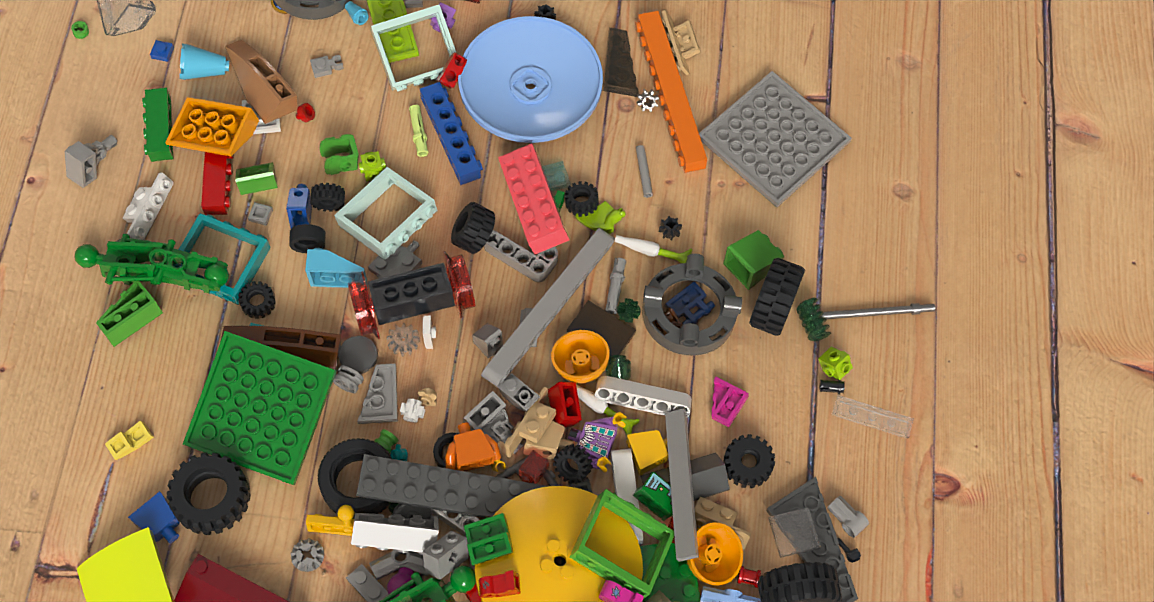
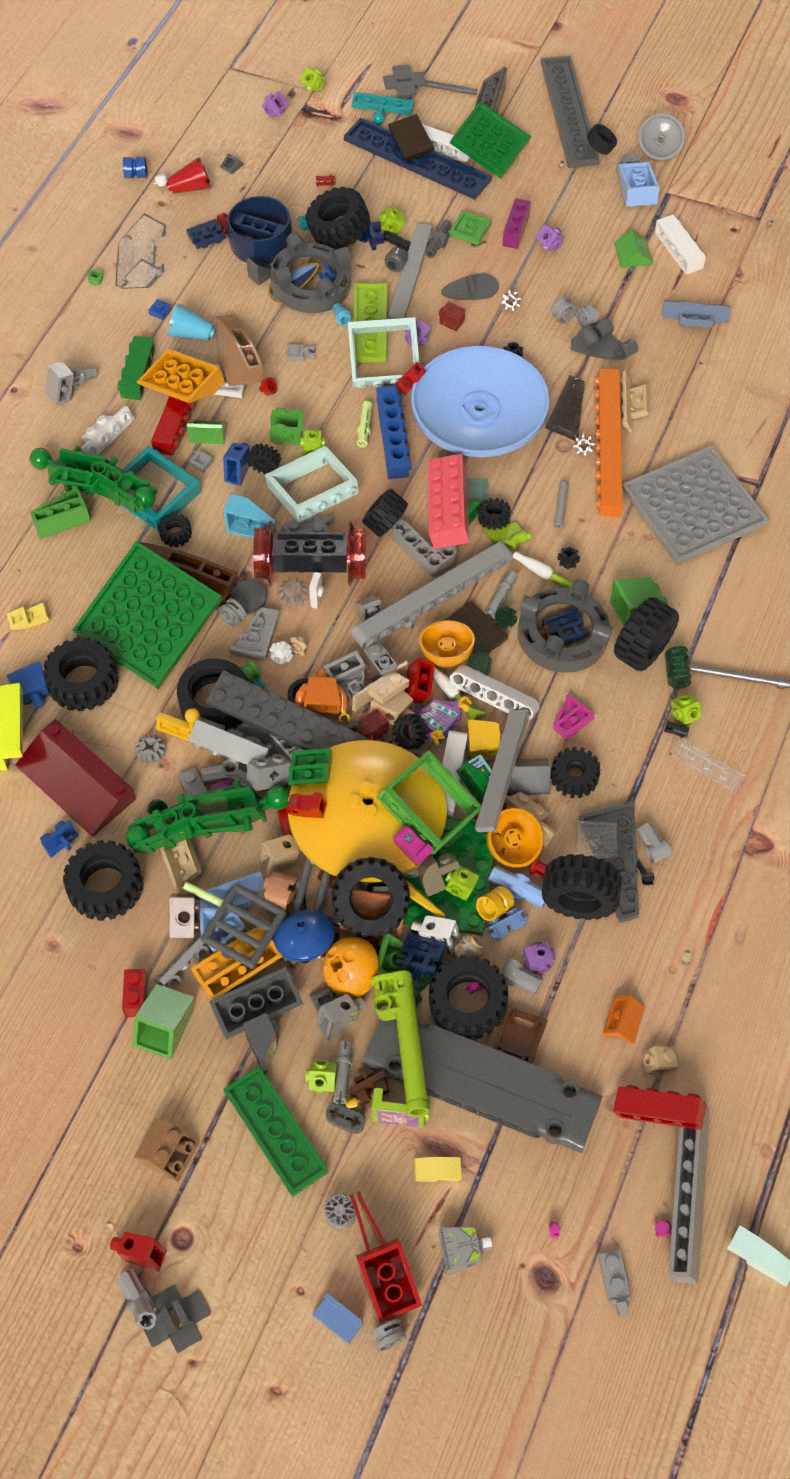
camera: 20 degrees right, 5 degrees down
(306, 237) = (237, 481): black tyre -> none

